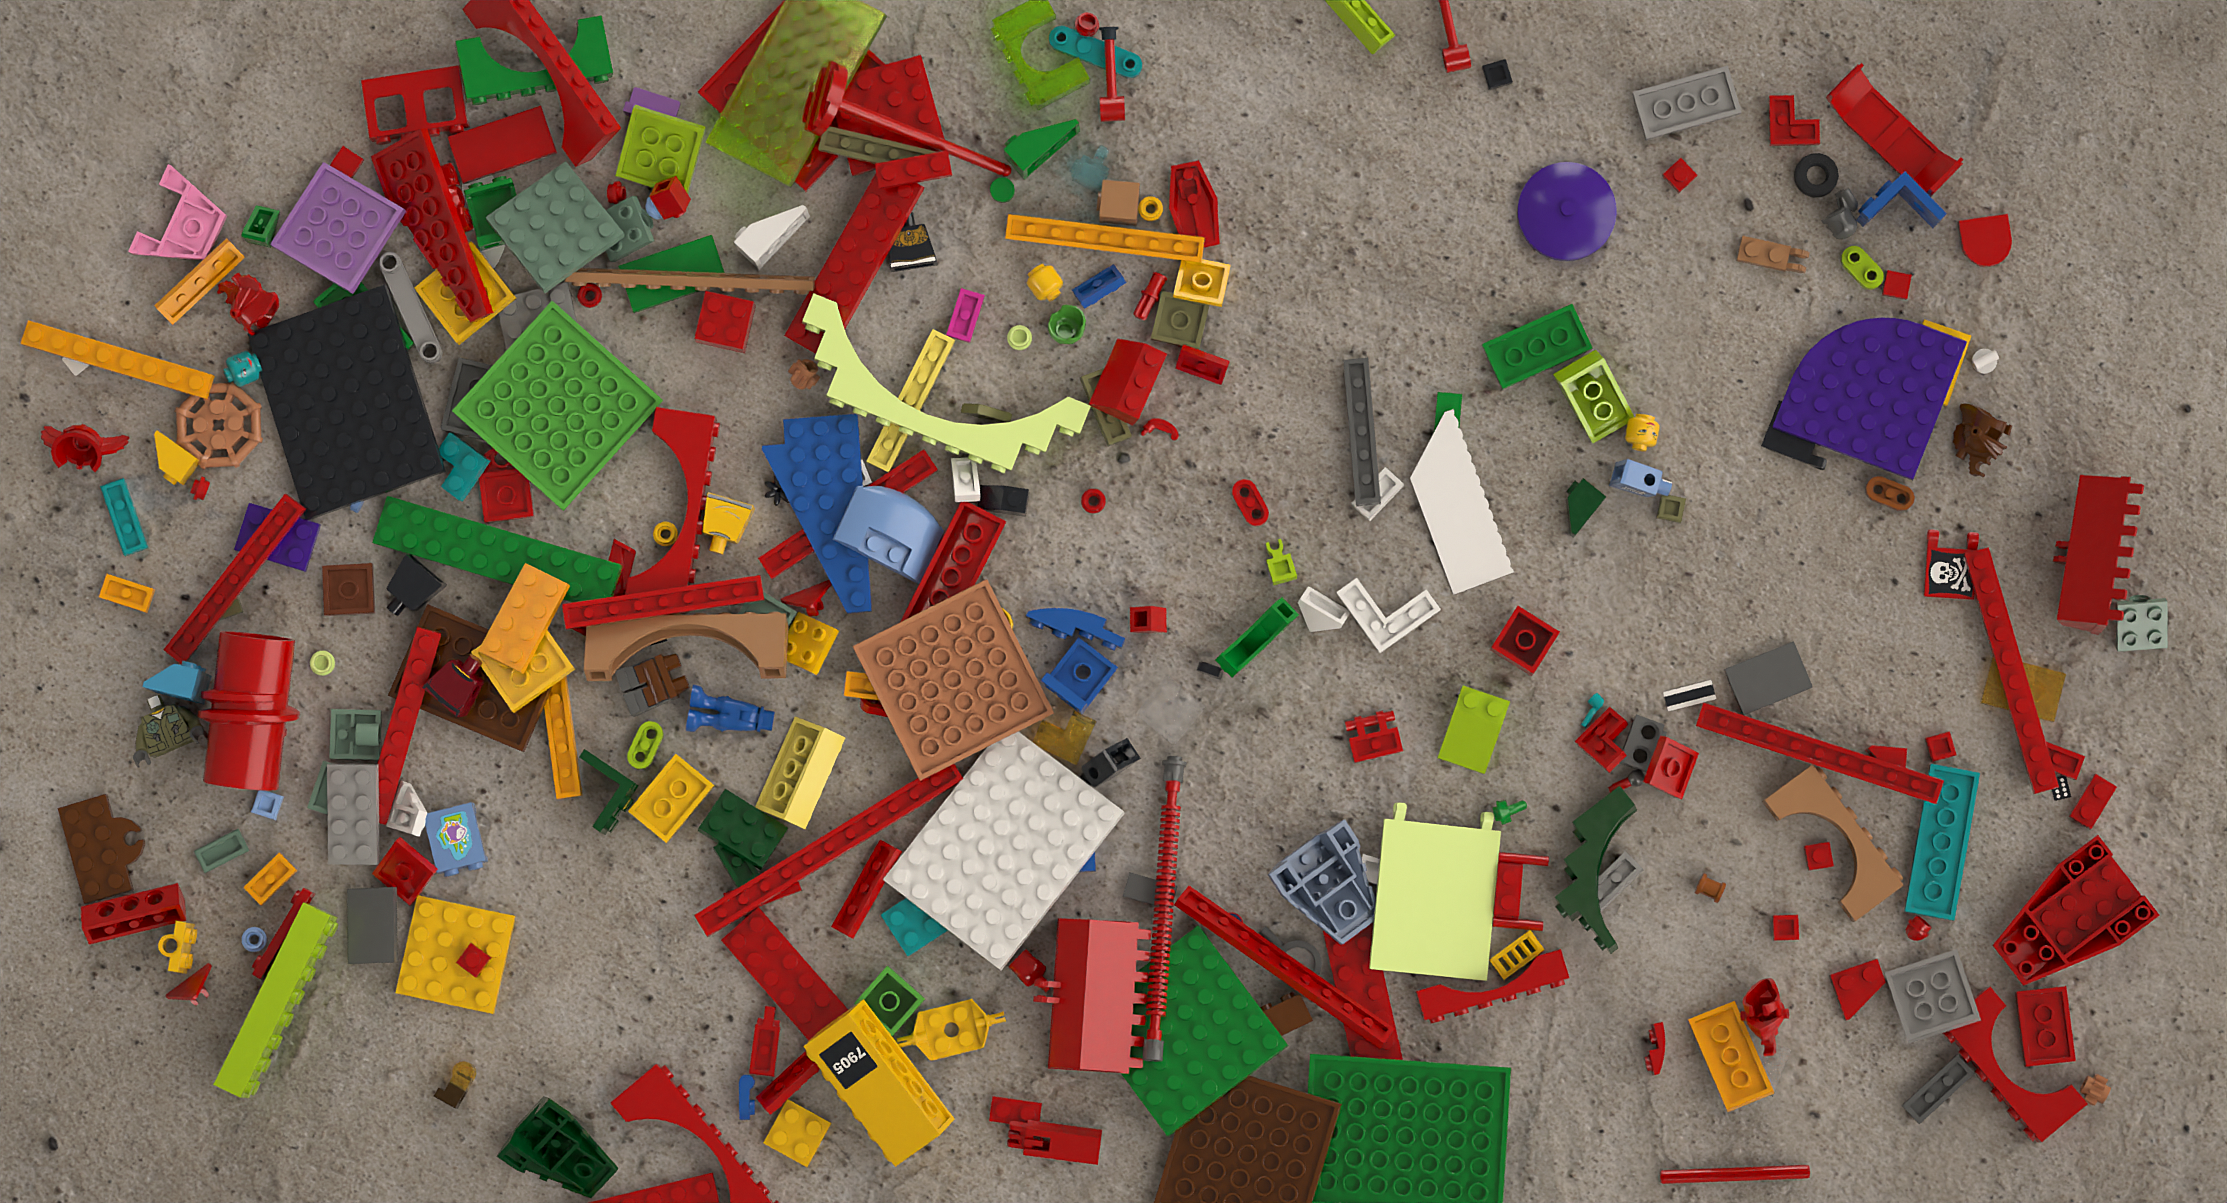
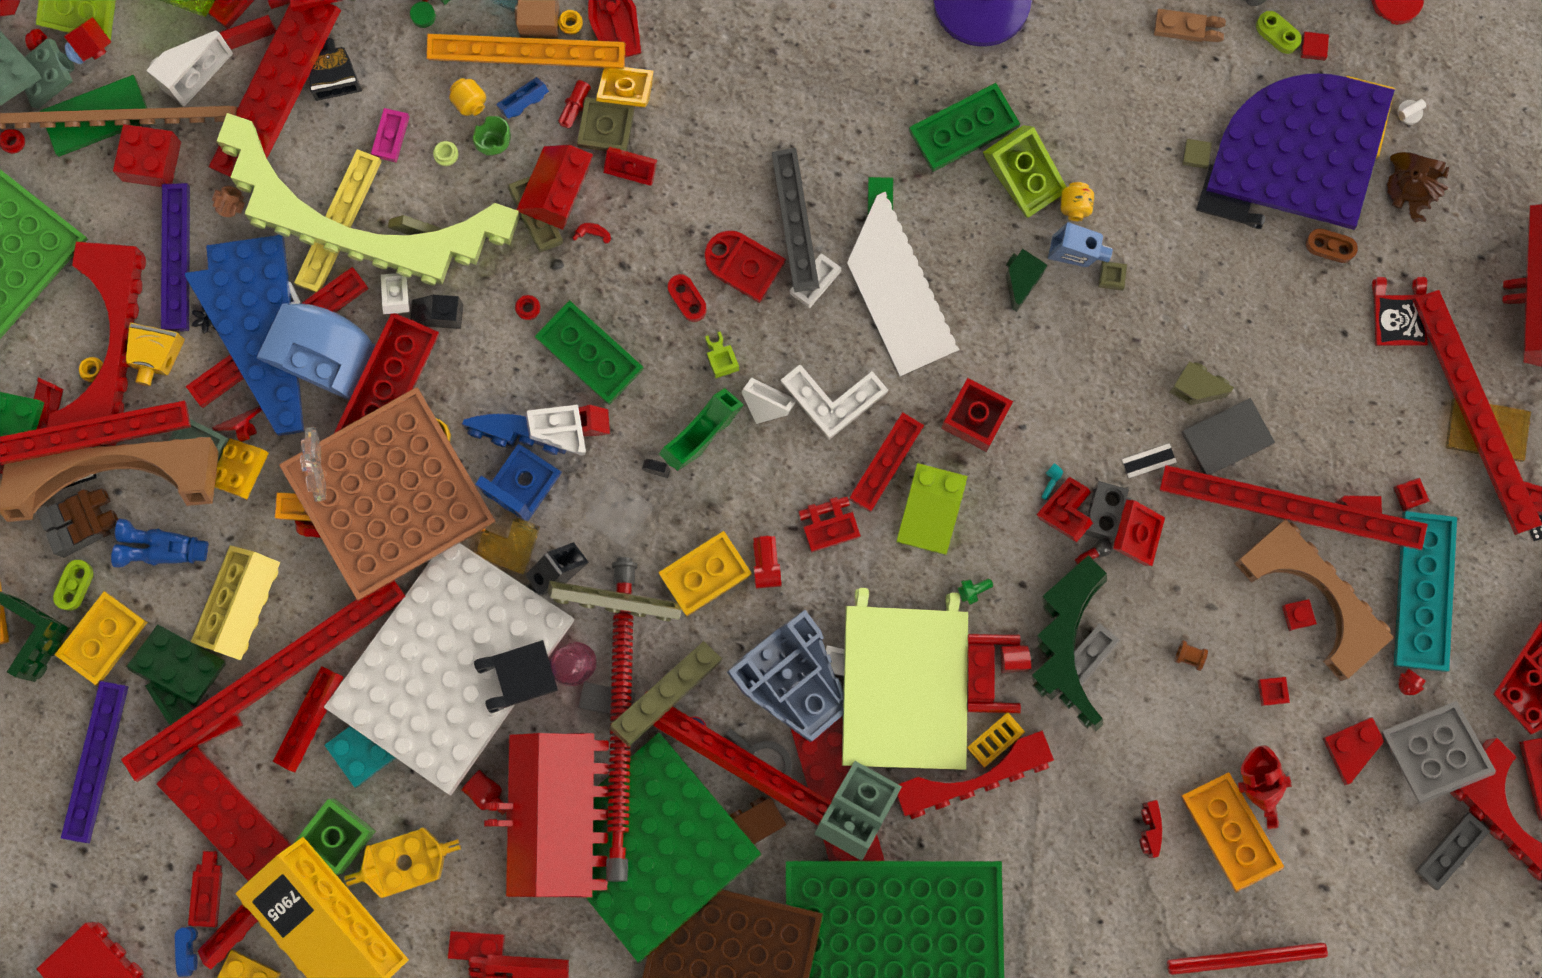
camera: 10 degrees left, 5 degrees down
(663, 915) = (94, 762): none -> dark purple plate
(749, 426) = (175, 257): none -> dark purple plate
(823, 200) = (249, 32): none -> red tile
(888, 650) = (311, 463): none -> clear plate
(1074, 863) = (521, 674): none -> black flag
(1119, 627) = (557, 428): none -> white wing
(1120, 854) = (573, 664): none -> clear pink helmet
(1151, 551) = (589, 352): none -> green plate
(1164, 799) = (613, 601): none -> olive plate
(1207, 889) = (665, 693): none -> olive plate
(1251, 776) = (705, 573): none -> yellow plate
(1309, 472) = (744, 265): none -> red tile
(1310, 775) = (767, 569): none -> red piece
(1381, 1011) = (858, 810): none -> sand green slope
(1433, 680) = (886, 462): none -> red plate
(1541, 879) = (1015, 658): none -> red brick
(1743, 626) = (1199, 386): none -> olive slope
(1766, 389) = (1197, 153): none -> olive tile

